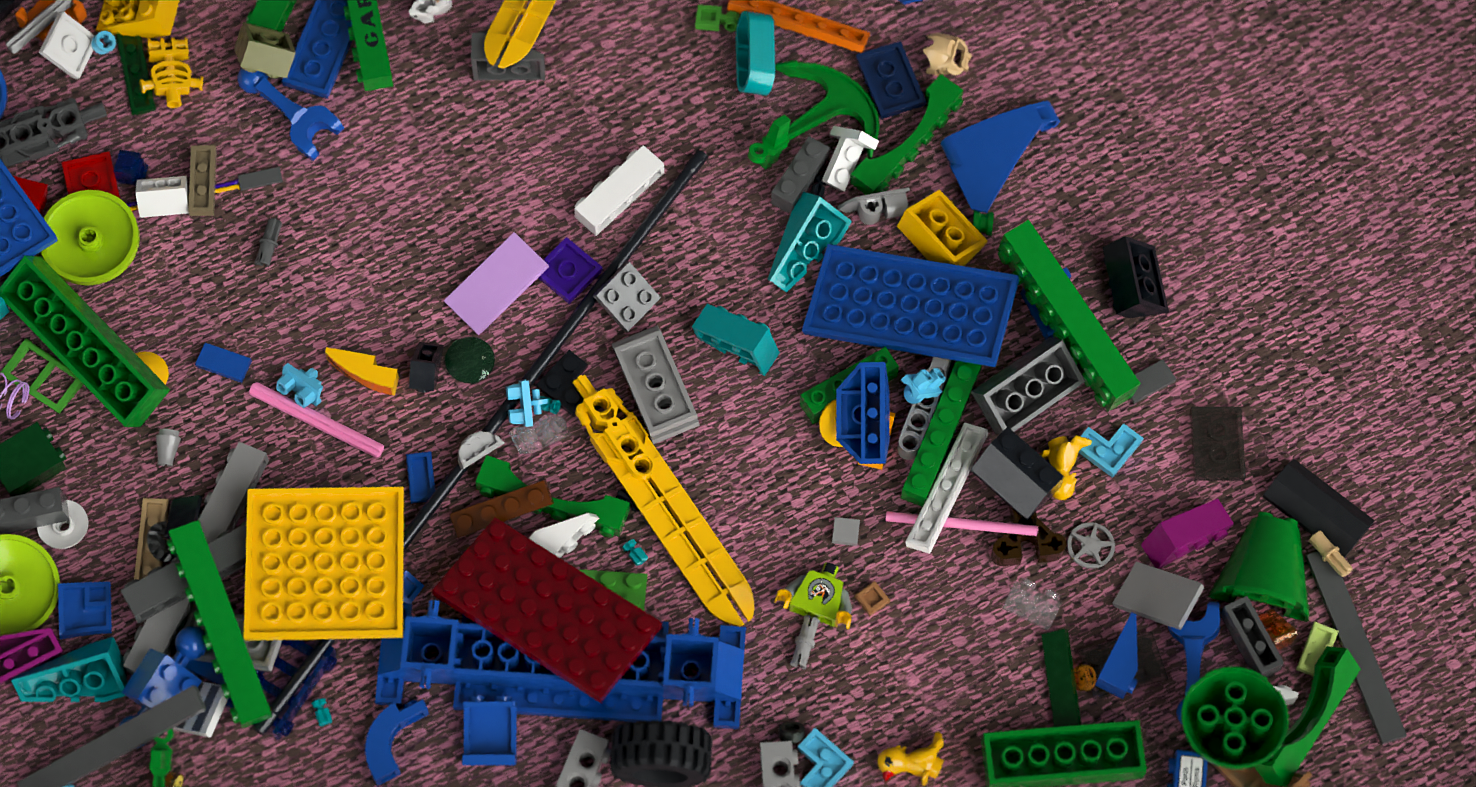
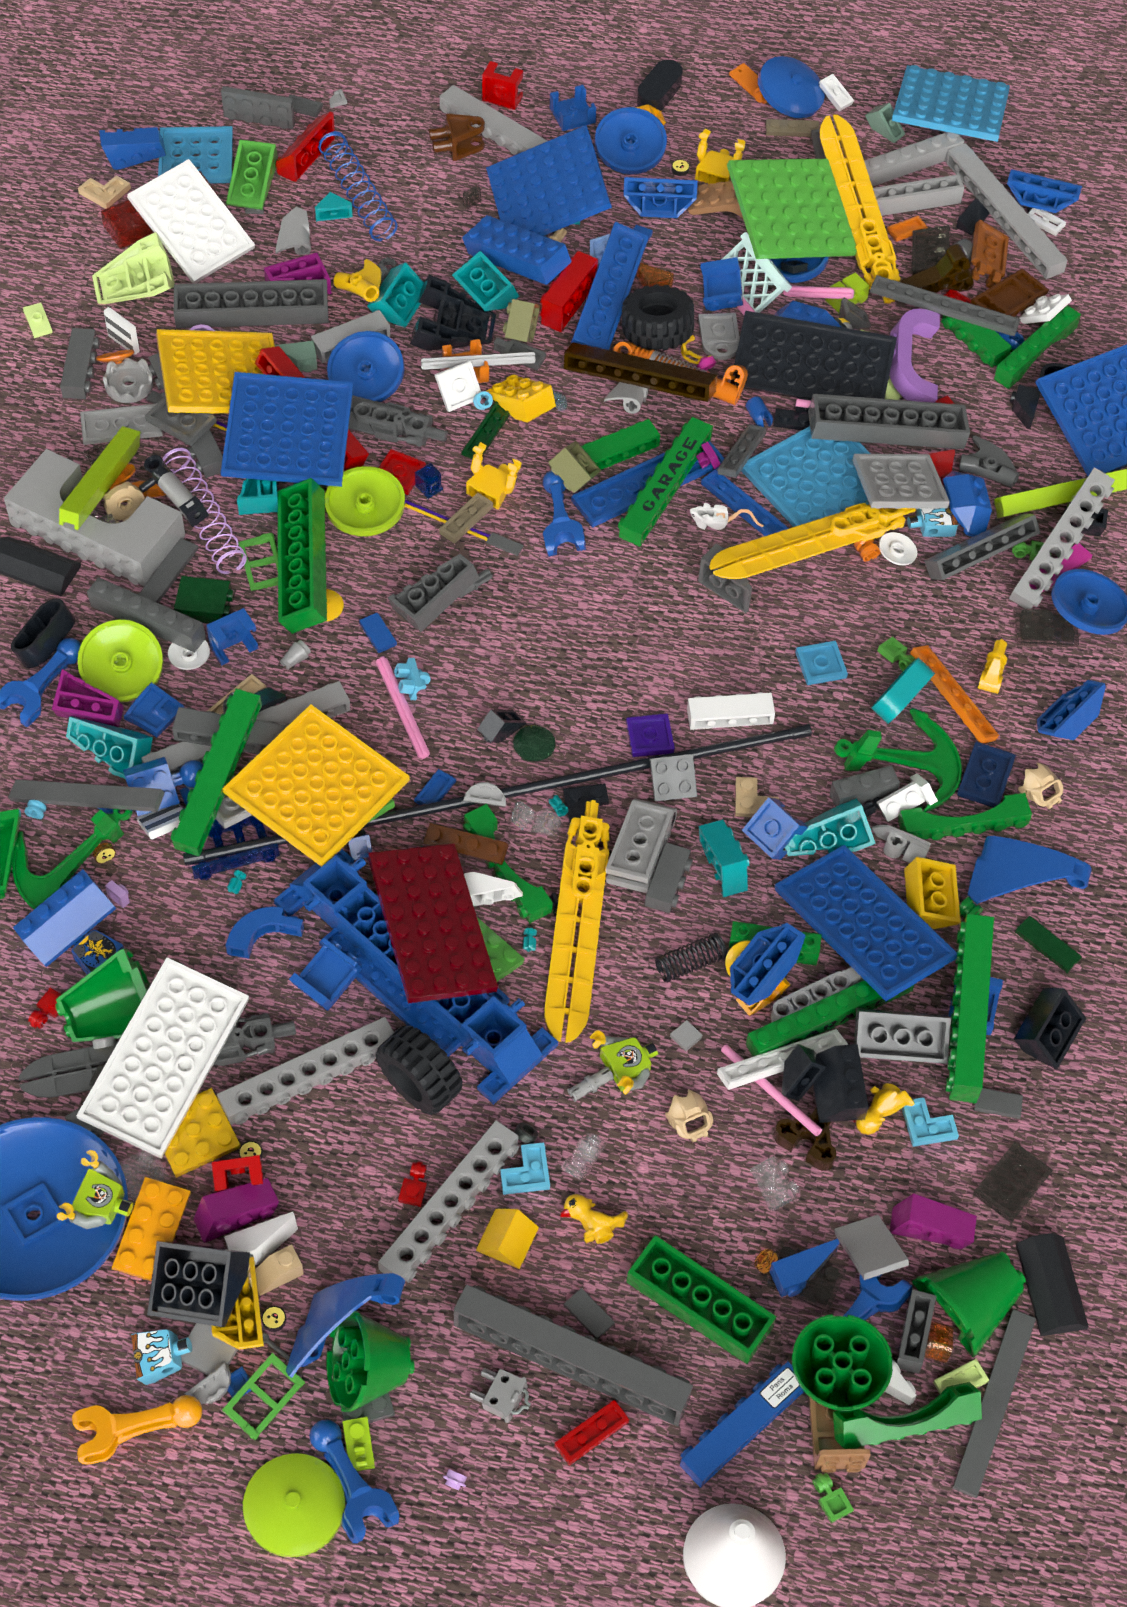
camera: 40 degrees right, 10 degrees down
(83, 478) = (229, 632): none -> blue panel
(162, 196) = (431, 509): white brick -> none
(170, 76) = (507, 443): yellow piece -> none
(192, 123) = (491, 481): none -> yellow torso
(246, 283) = (434, 592): none -> dark grey wedge
(364, 370) = (460, 700): yellow slope -> none
(496, 283) = (594, 709): lavender tile -> none
(524, 414) = (545, 781): medium azure hips -> none
(657, 79) = (821, 663): none -> dark azure plate
(706, 396) = (668, 878): none -> dark grey brick
(712, 268) = (746, 797): none -> tan plate
(760, 278) = (773, 828): none -> panel
(793, 420) = (714, 936): none -> black piece
(857, 711) = (584, 1155): none -> clear slope
(872, 598) = (663, 1092): medium nougat tile -> none
(909, 601) = (686, 1109): none -> tan helmet
(923, 385) = (821, 974): medium azure hips -> none
(976, 487) = (801, 1072): none -> black slope
(1061, 678) = (750, 1247): dark green tile -> none
(1070, 202) = (1048, 944): none -> dark green tile
(1091, 545) = (855, 1179): light grey wheel -> none
(1330, 554) = (1031, 1321): tan axle -> none

